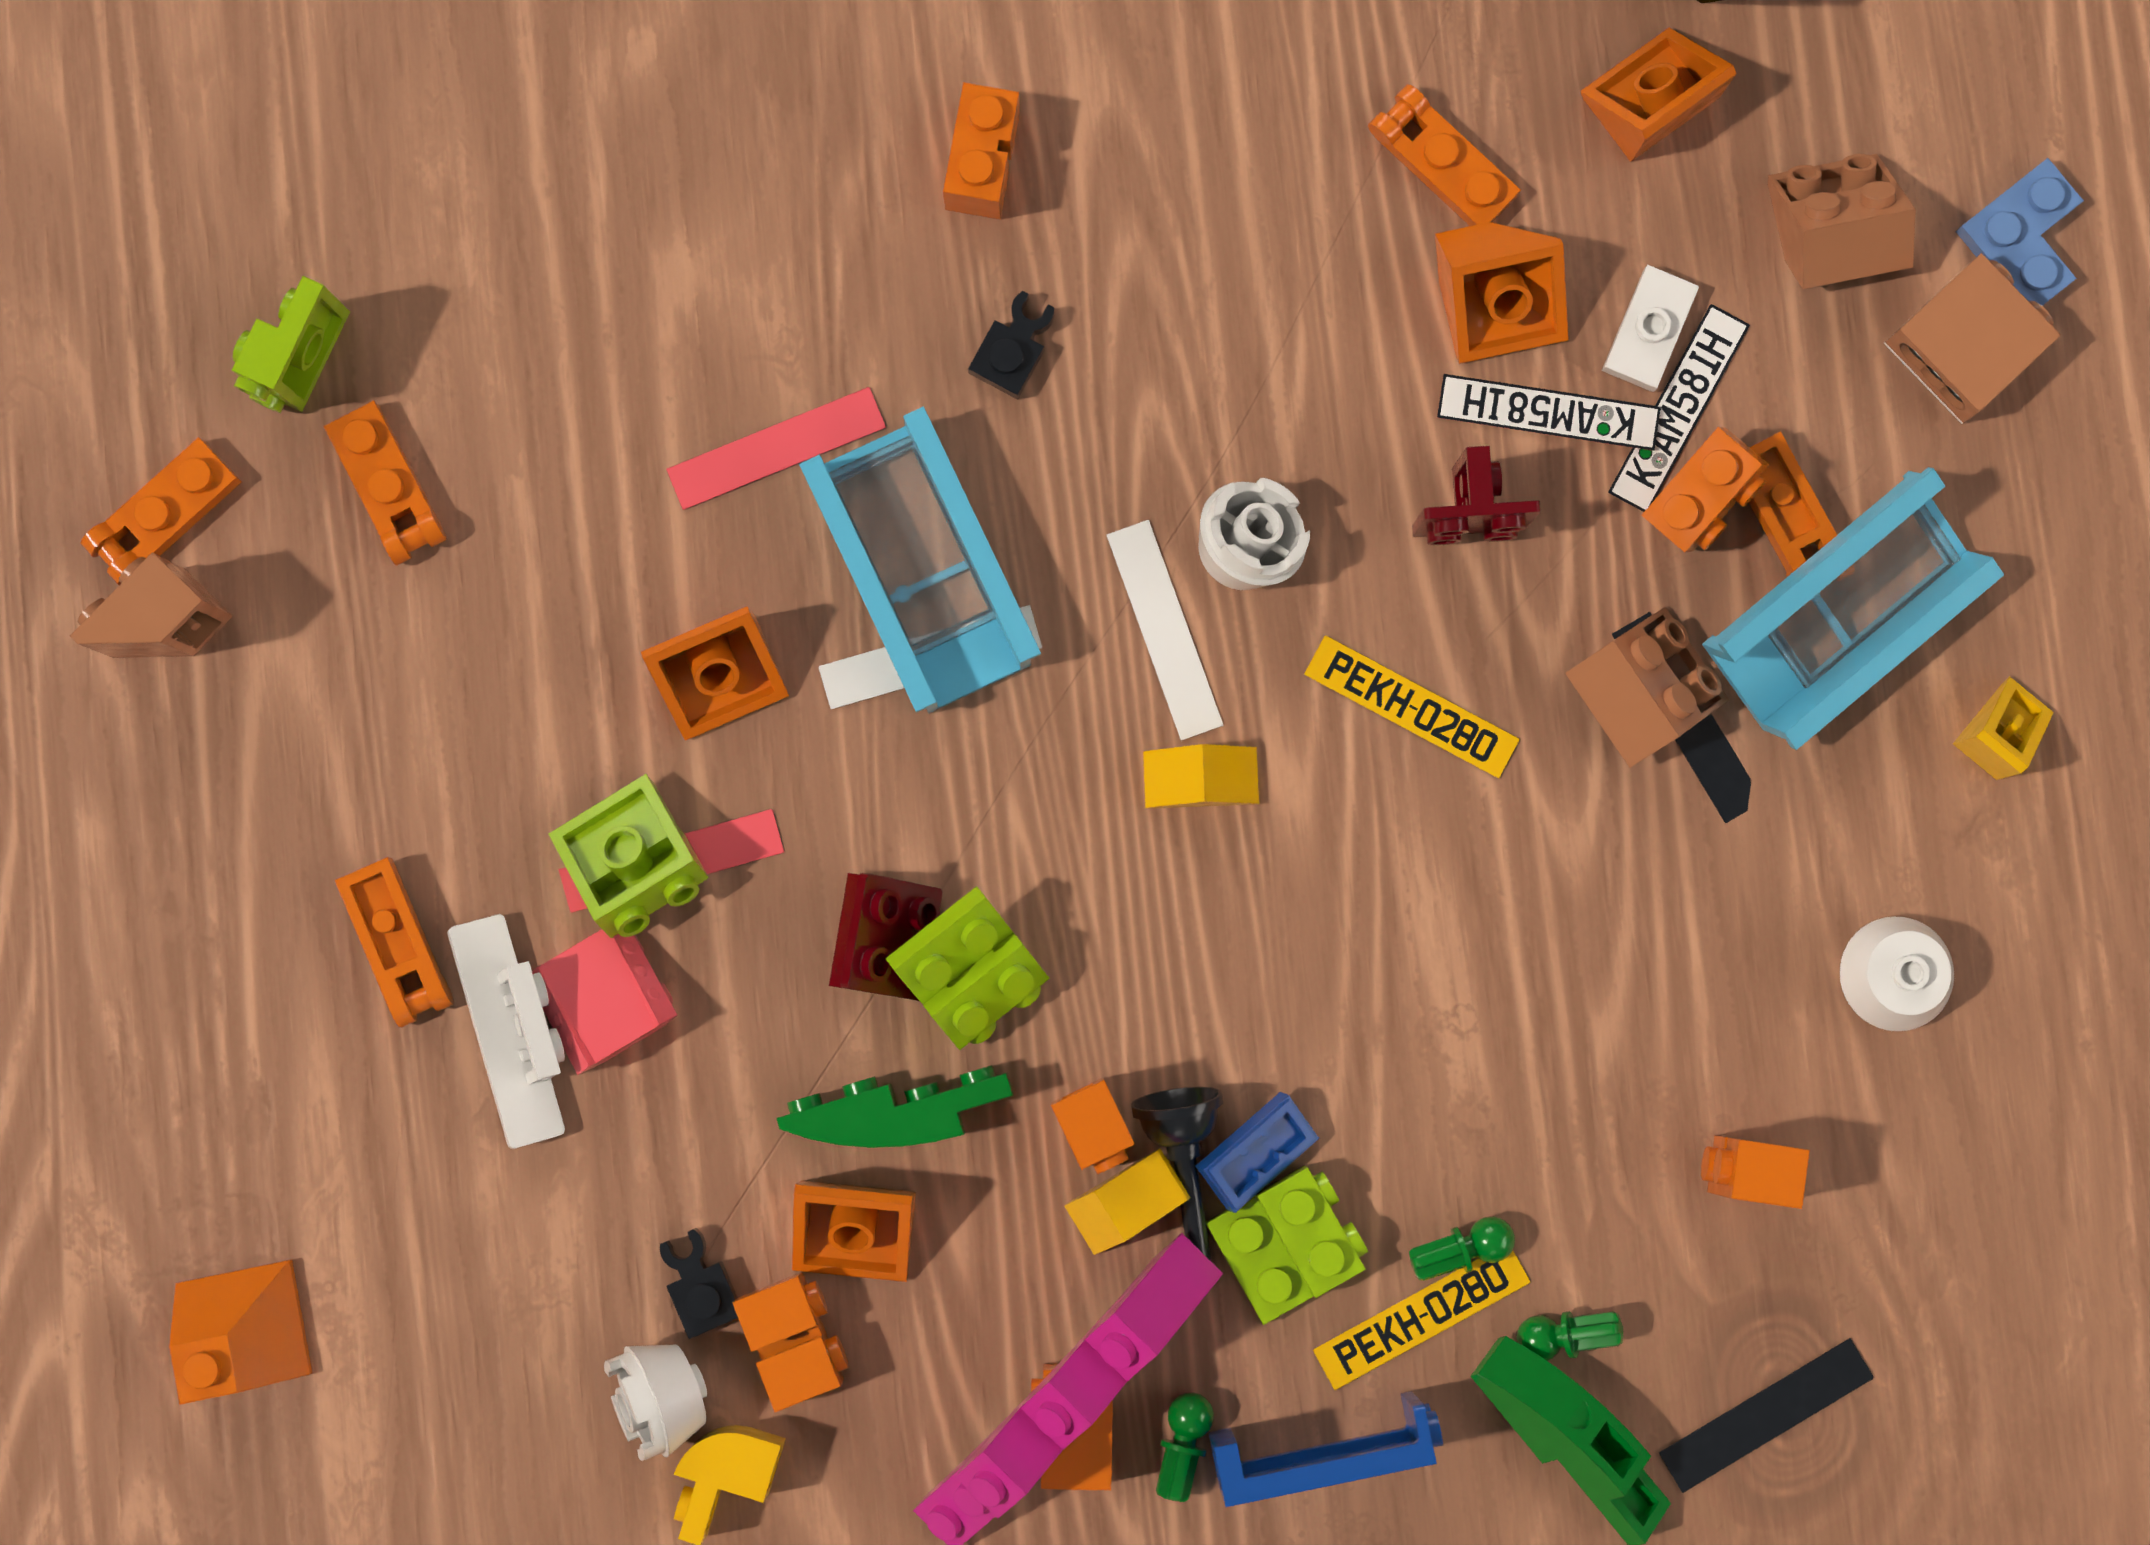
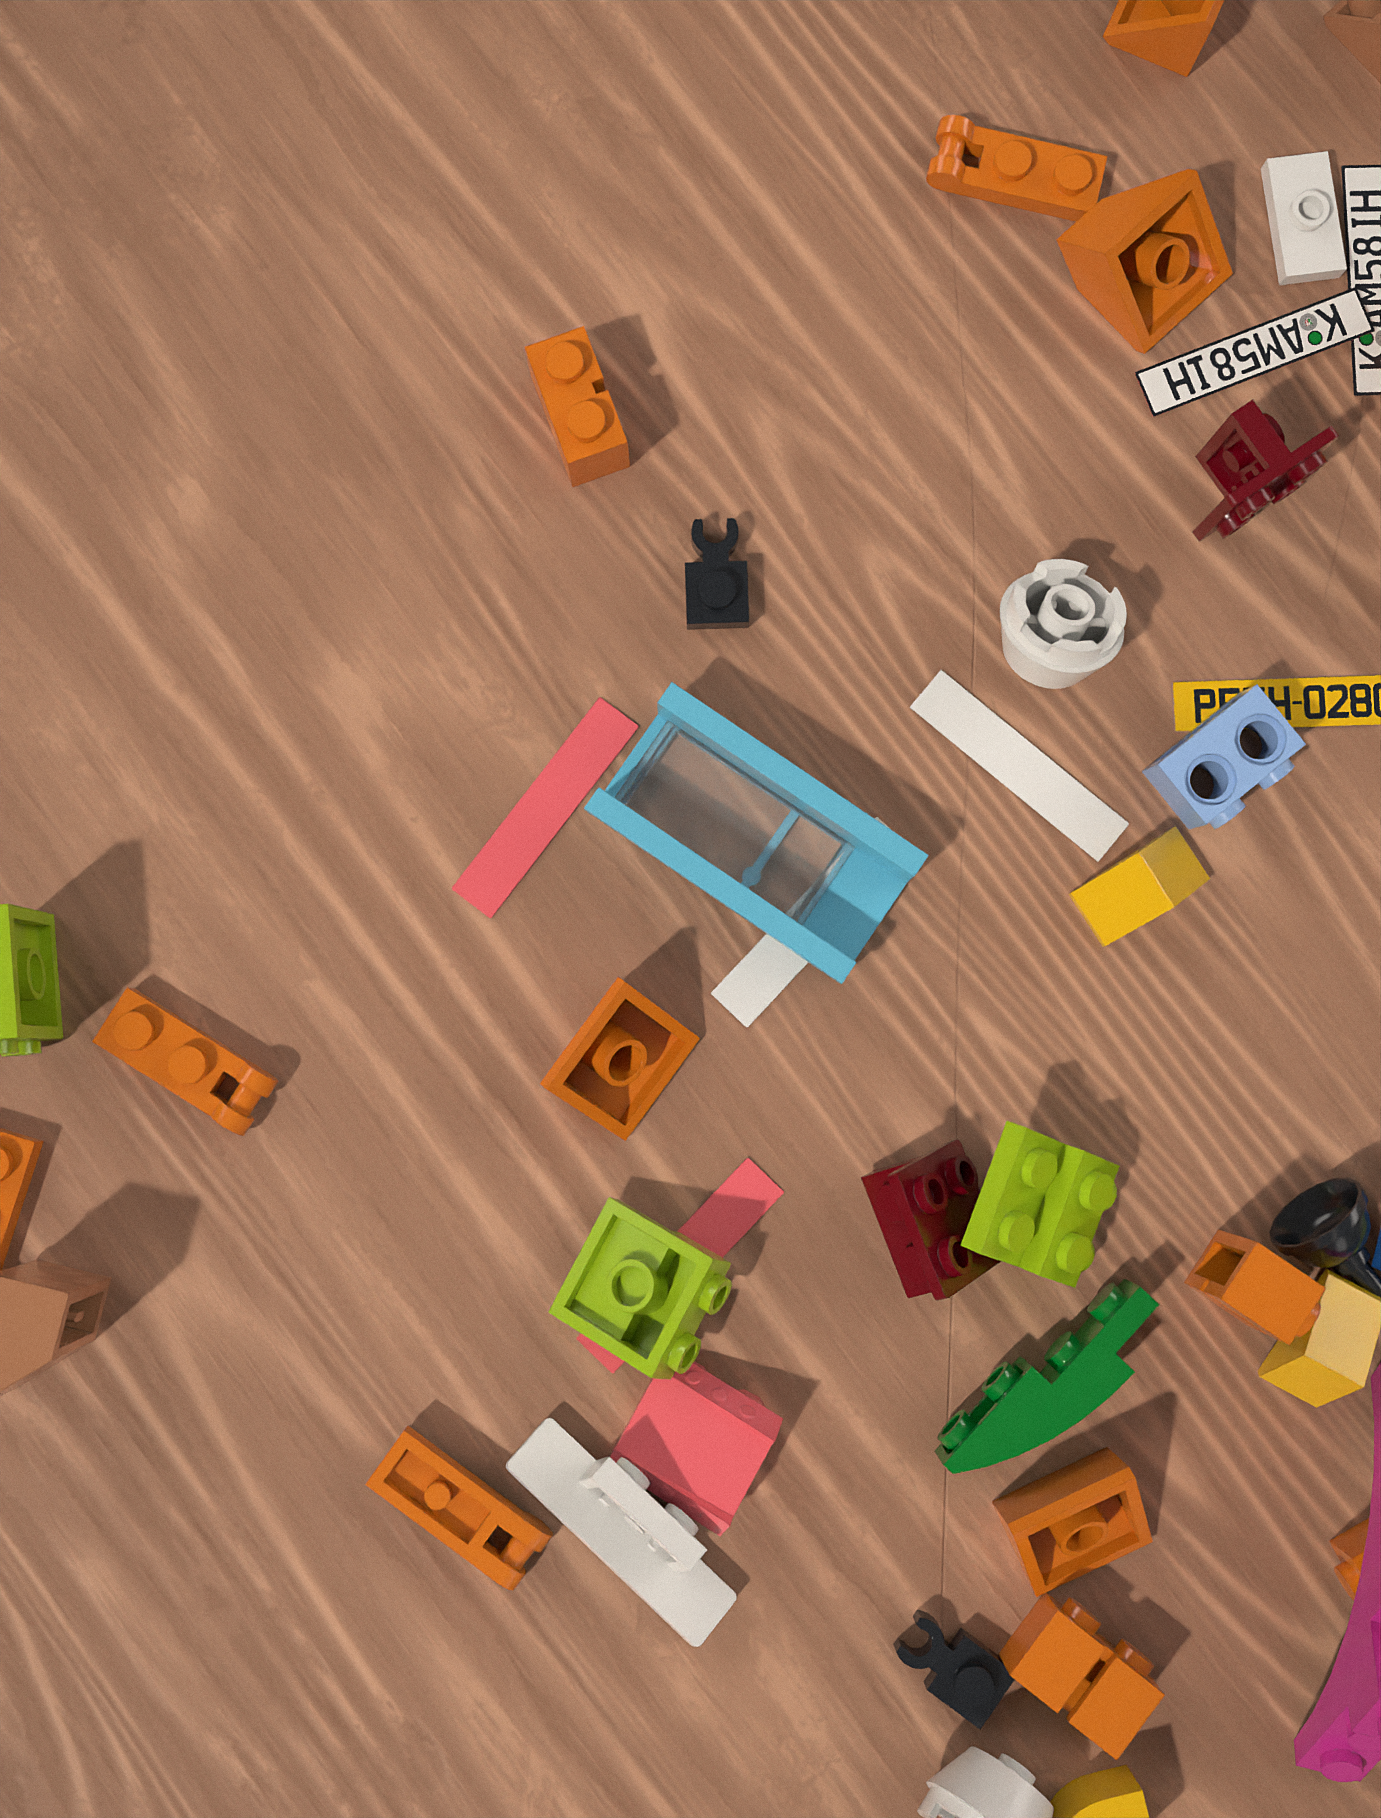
camera: 30 degrees left, 0 degrees up
(1318, 701) = (1217, 749): none -> light blue brick

